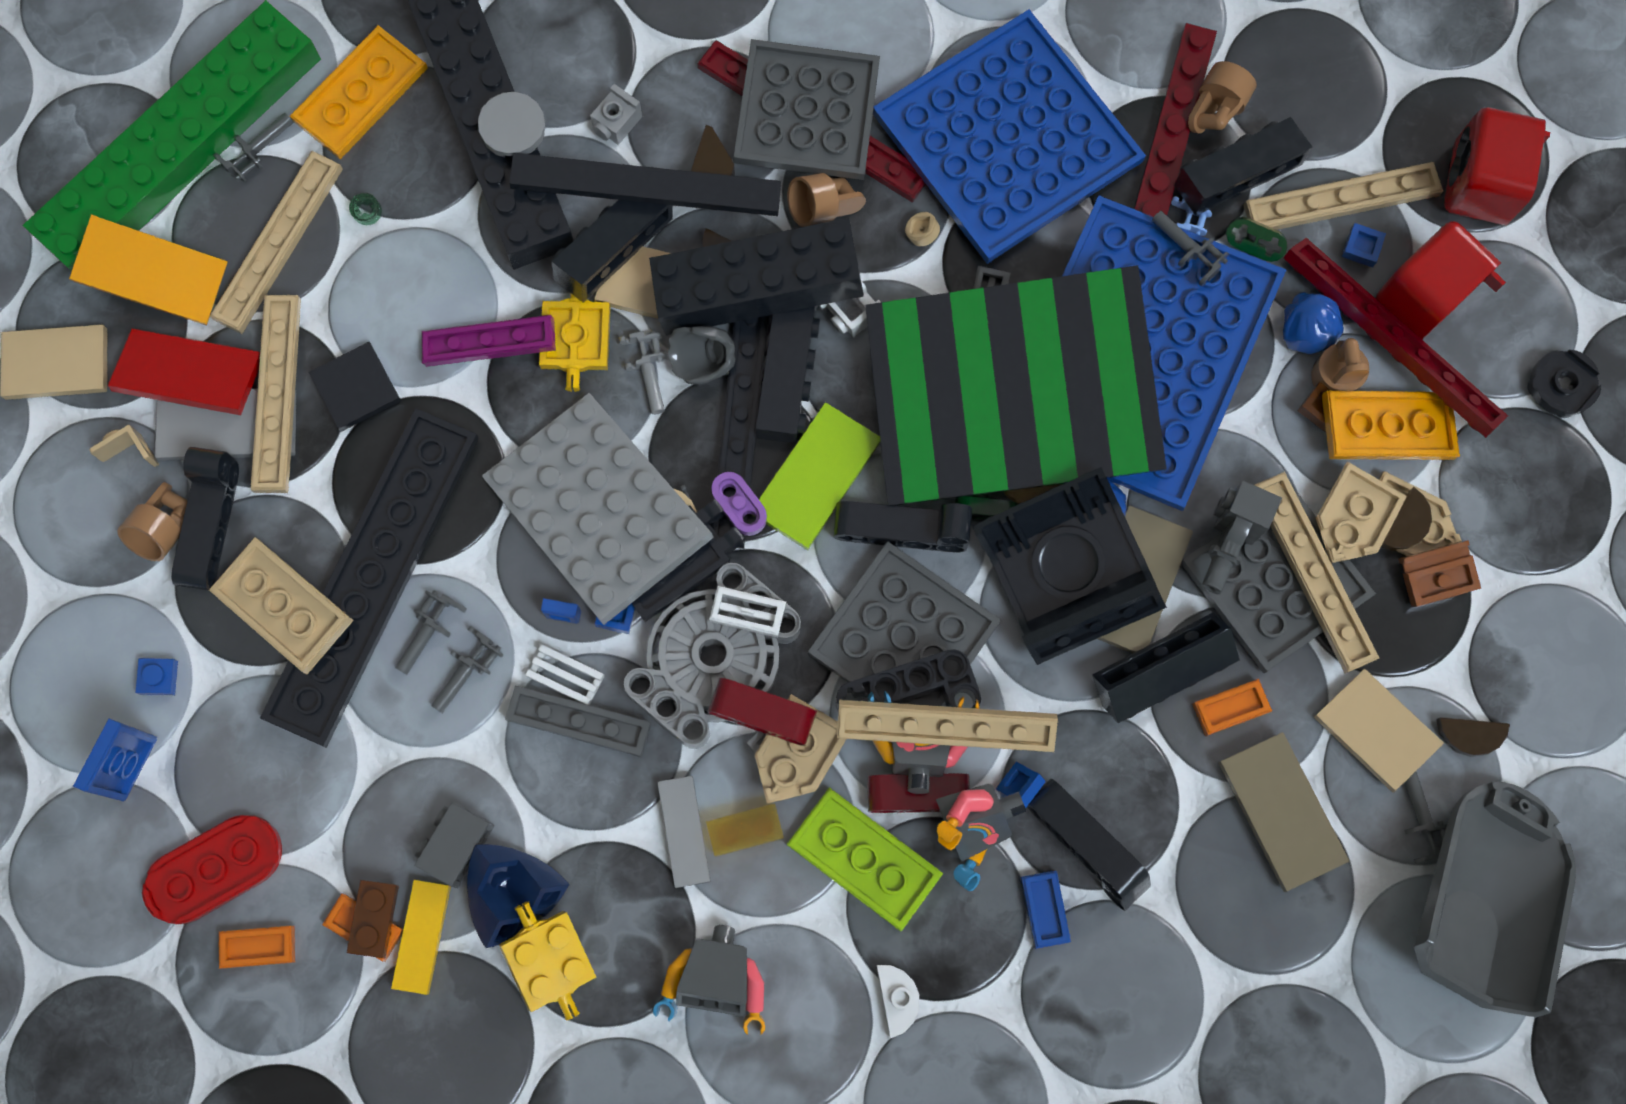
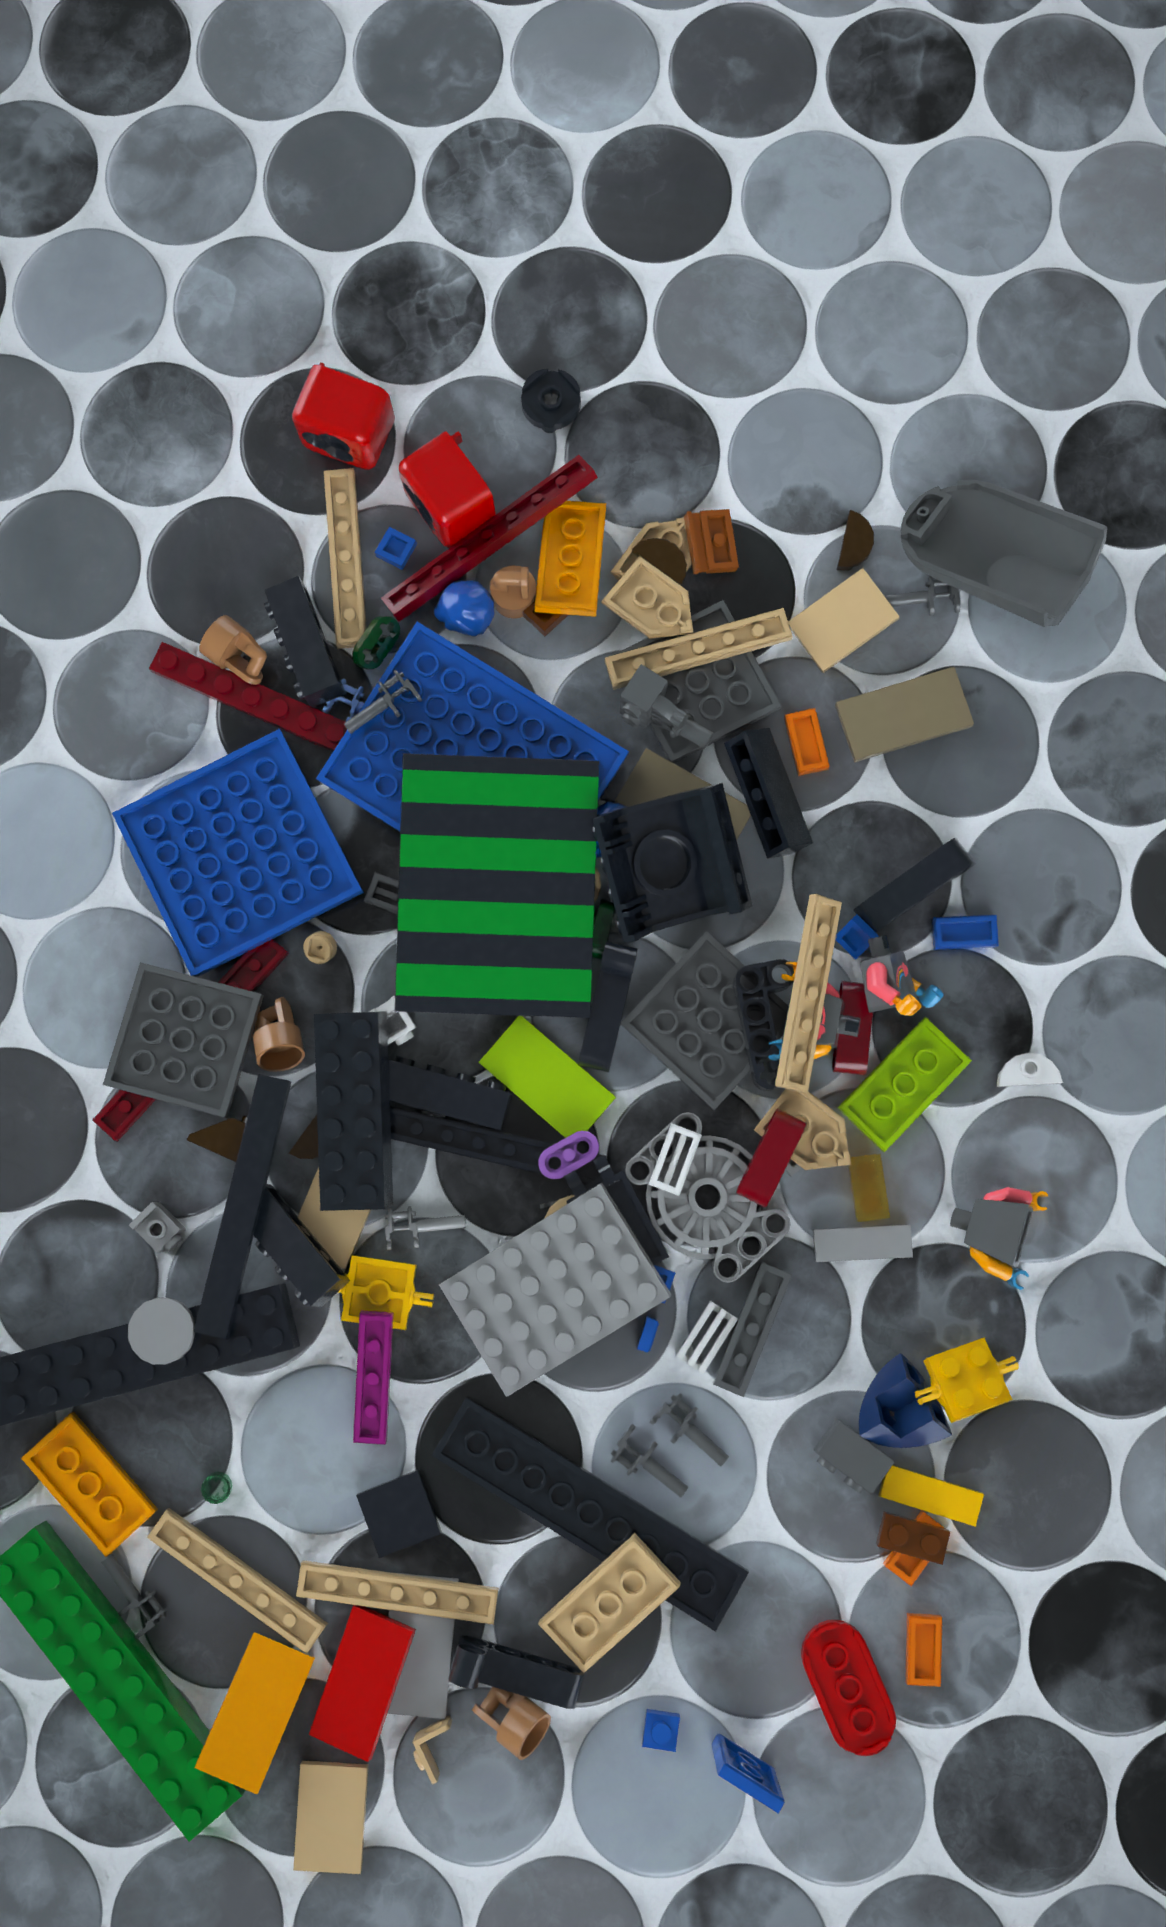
camera: 75 degrees left, 5 degrees up
(701, 353) = (418, 1172): dark grey hair -> none

